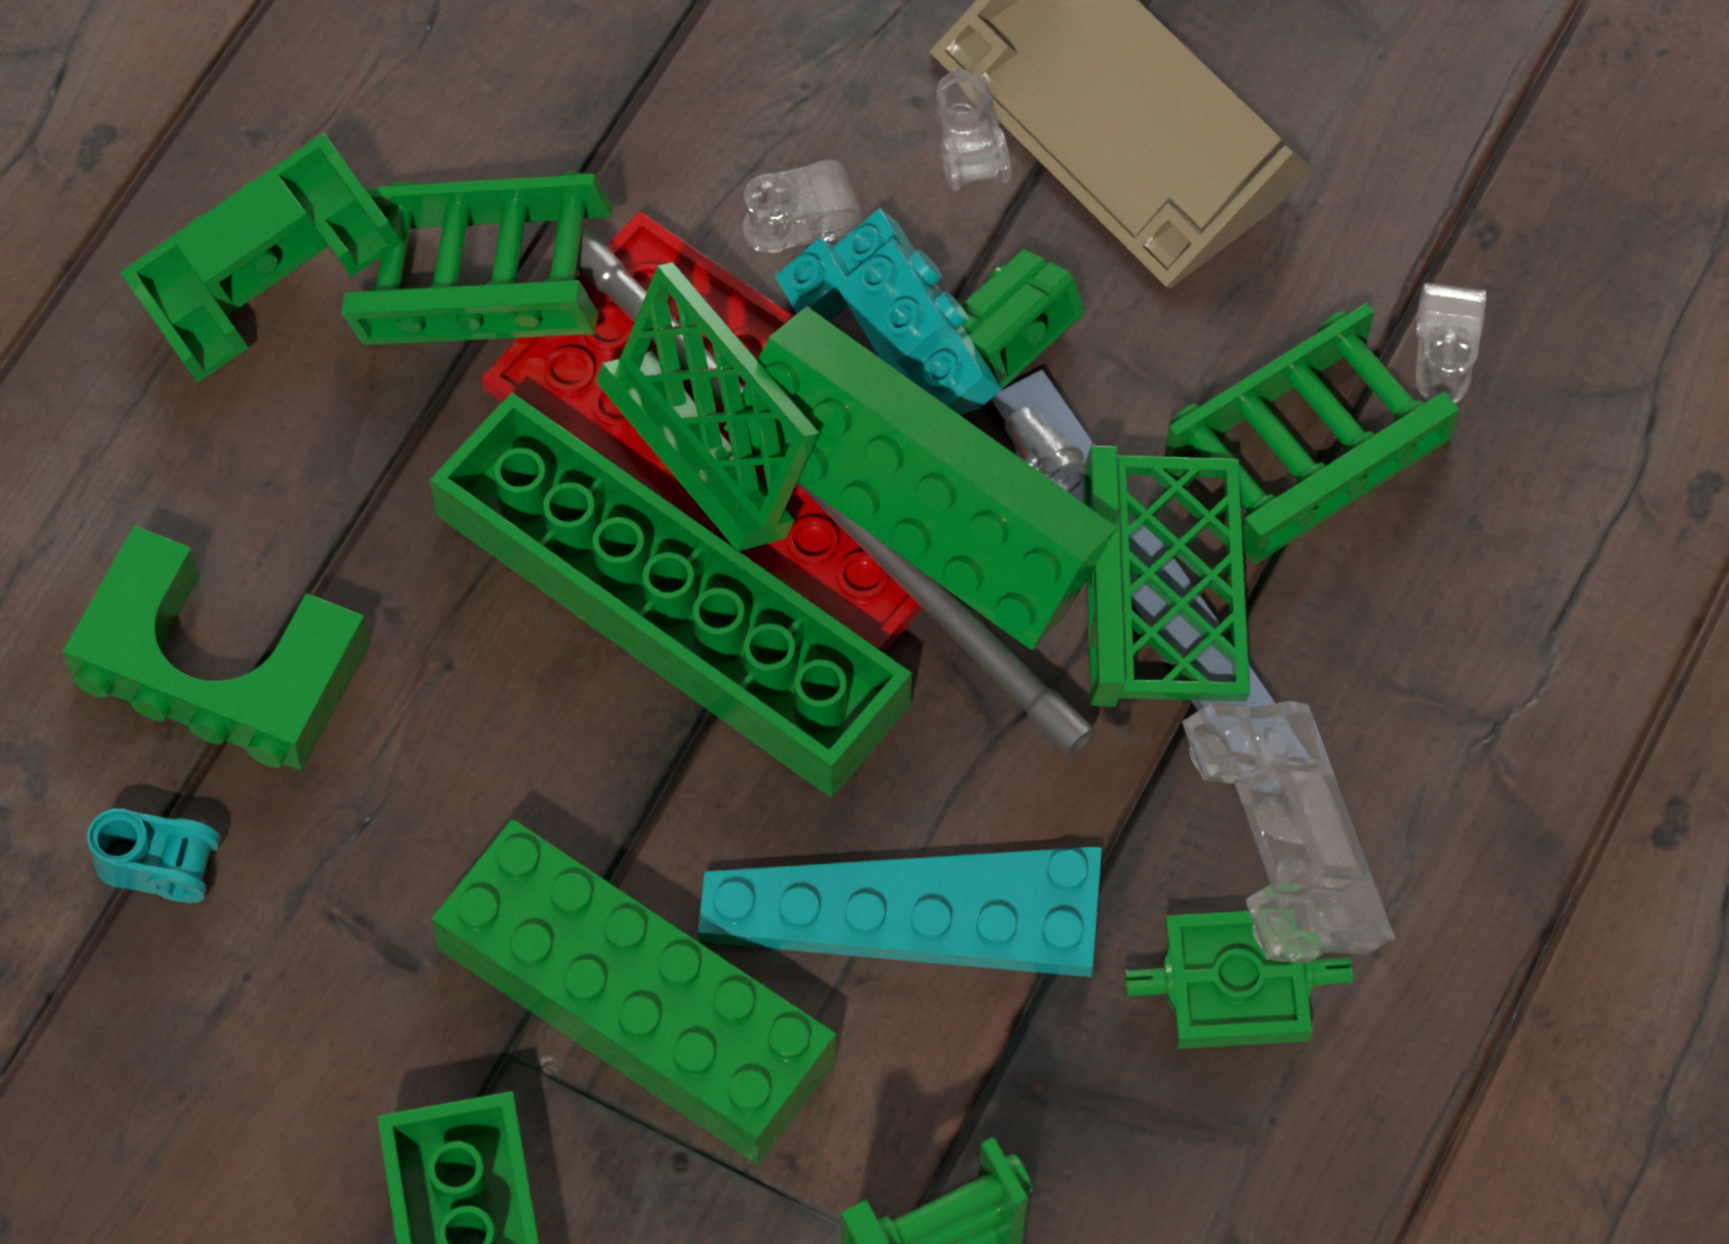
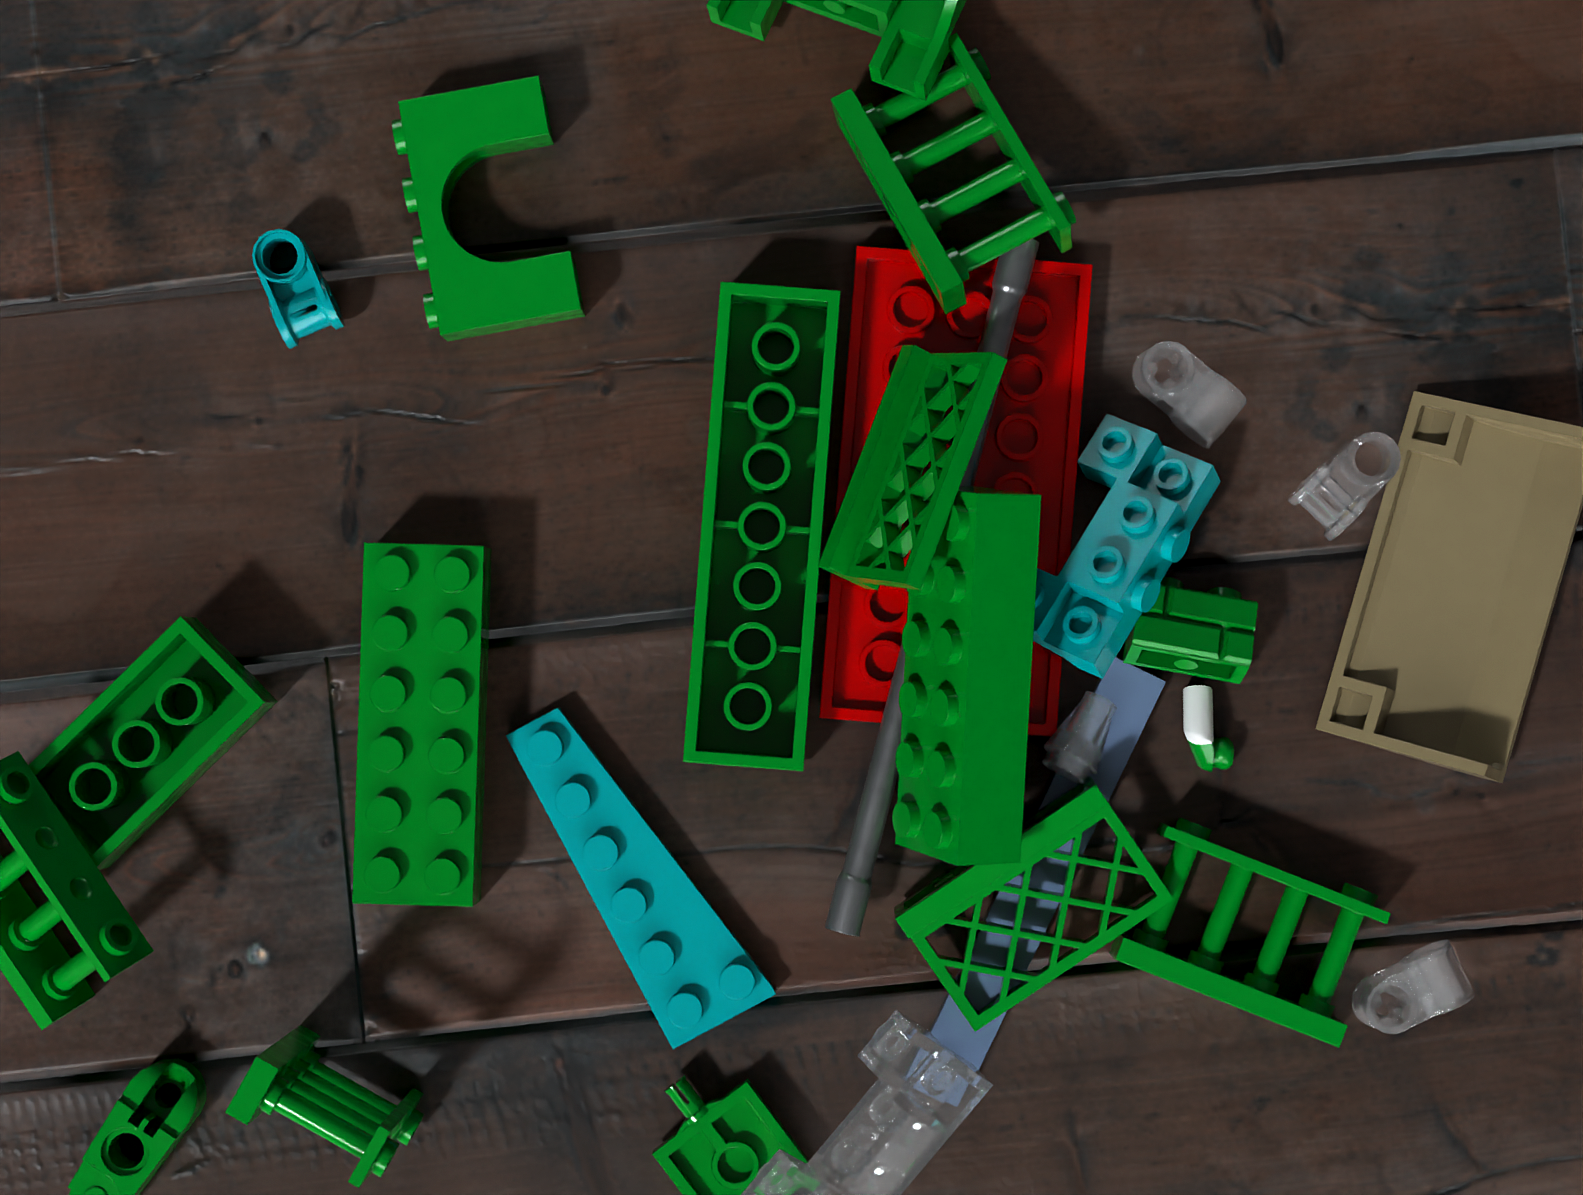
camera: 60 degrees right, 25 degrees up
(1122, 374) = (1199, 730): none -> arm

